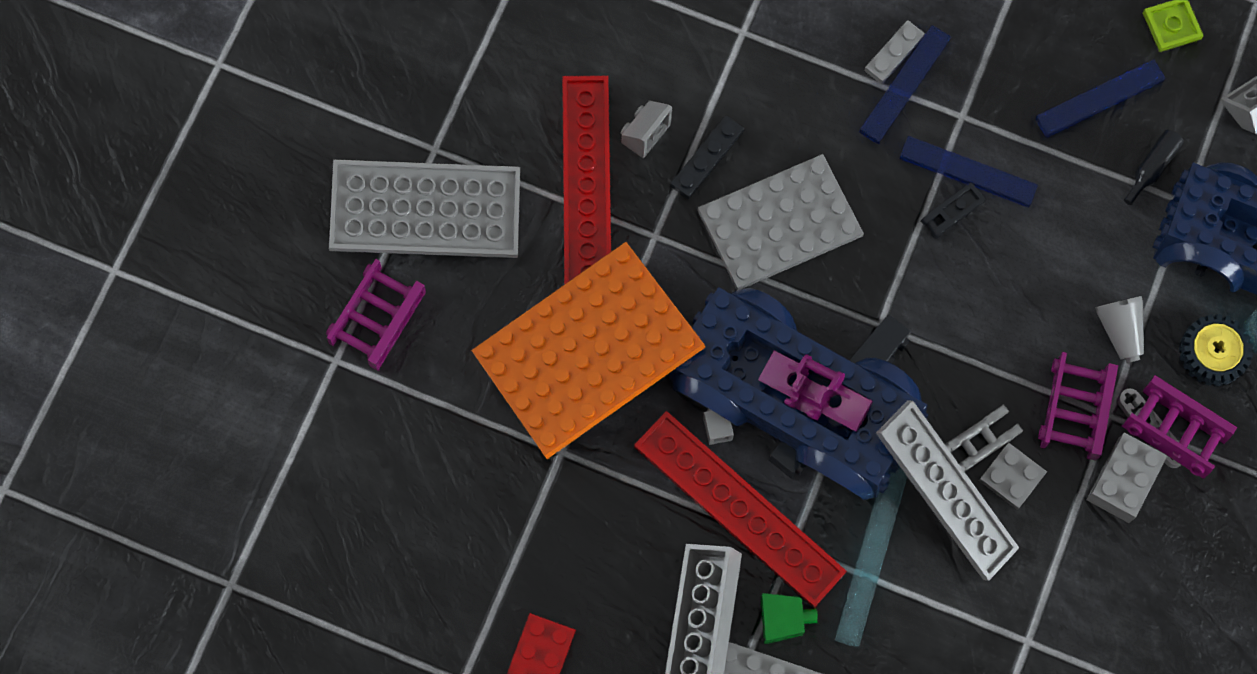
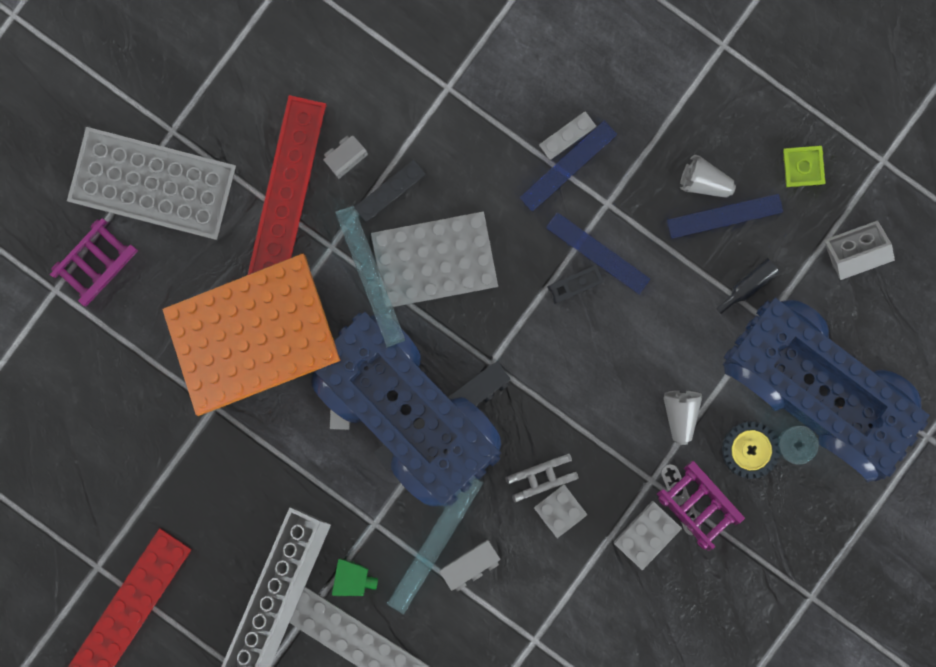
camera: 15 degrees right, 15 degrees up
(714, 248) = (370, 276): none -> clear light blue plate
(740, 509) = (340, 486): red plate -> none
(812, 397) = (412, 420): magenta piece -> none
(924, 566) = (470, 566): none -> light grey brick
(947, 490) = (498, 518): light grey plate -> none
(1067, 59) = (706, 179): none -> light grey cone
(1101, 399) = (646, 468): magenta fence -> none

